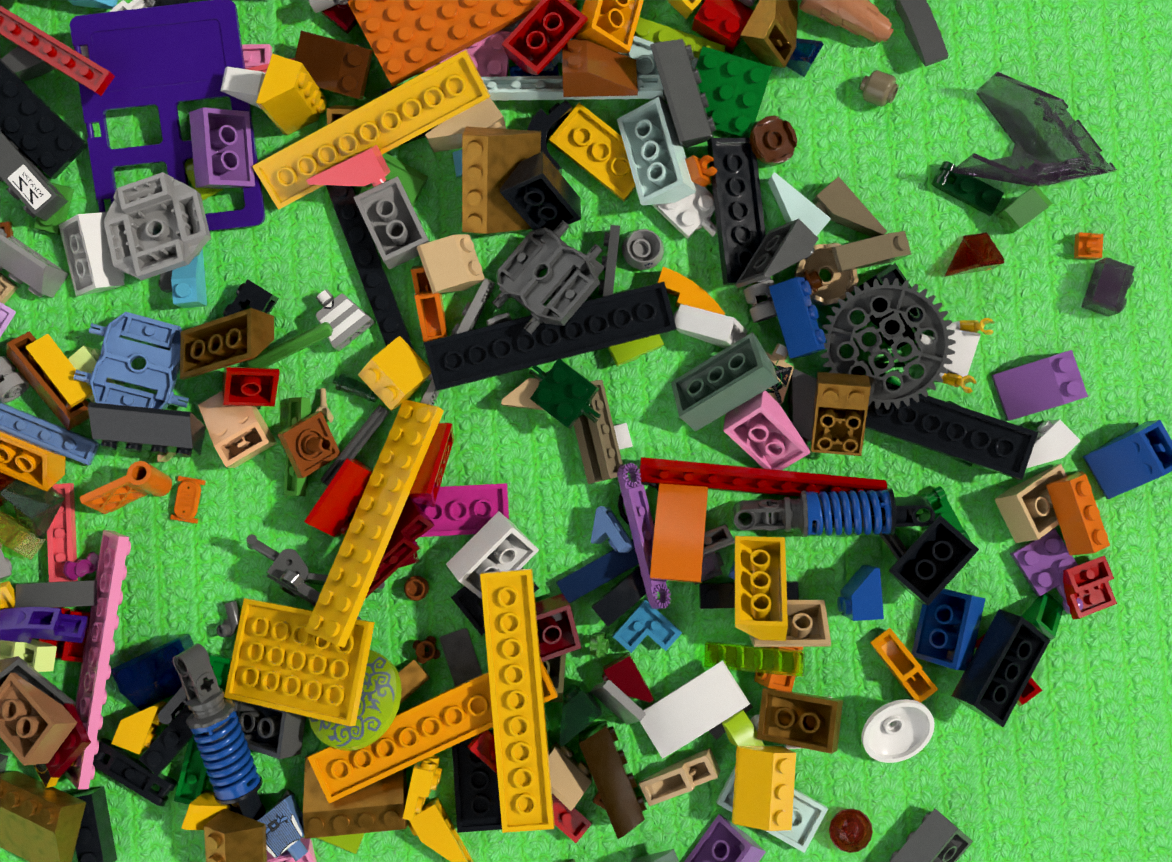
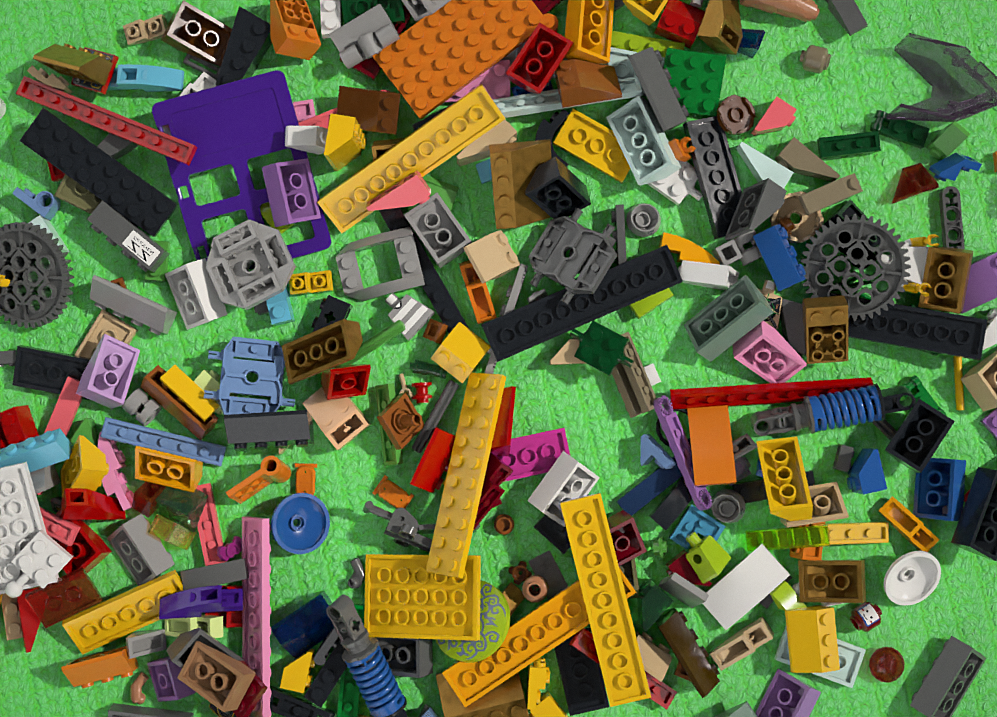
camera: 10 degrees left, 0 degrees up
(181, 561) = (311, 527): none -> blue dish
(232, 262) = (311, 282): none -> yellow slope
(290, 531) = (393, 493): none -> orange piece
(343, 414) = (422, 392): none -> red wheel
(350, 252) = (407, 259): none -> light grey wedge
(370, 343) = (435, 331): none -> dark orange plate
(434, 677) = (533, 595): none -> nougat head
(652, 666) = (706, 556): none -> lime torso
(689, 608) = (728, 506): none -> light grey hat
(736, 303) = (727, 253): none -> light grey brick
(820, 151) = (775, 118): none -> coral slope
(834, 769) = (866, 616): none -> head
(837, 572) = (843, 458): none -> dark grey piece
(840, 665) = (858, 532): none -> yellow tile
(903, 197) = (849, 144): none -> dark green plate
(991, 504) = (958, 374): none -> yellow bar
(998, 371) = (948, 275): none -> pearl gold slope
(1008, 312) = (947, 225): none -> dark grey beam
(1023, 240) = (950, 166): none -> blue slope

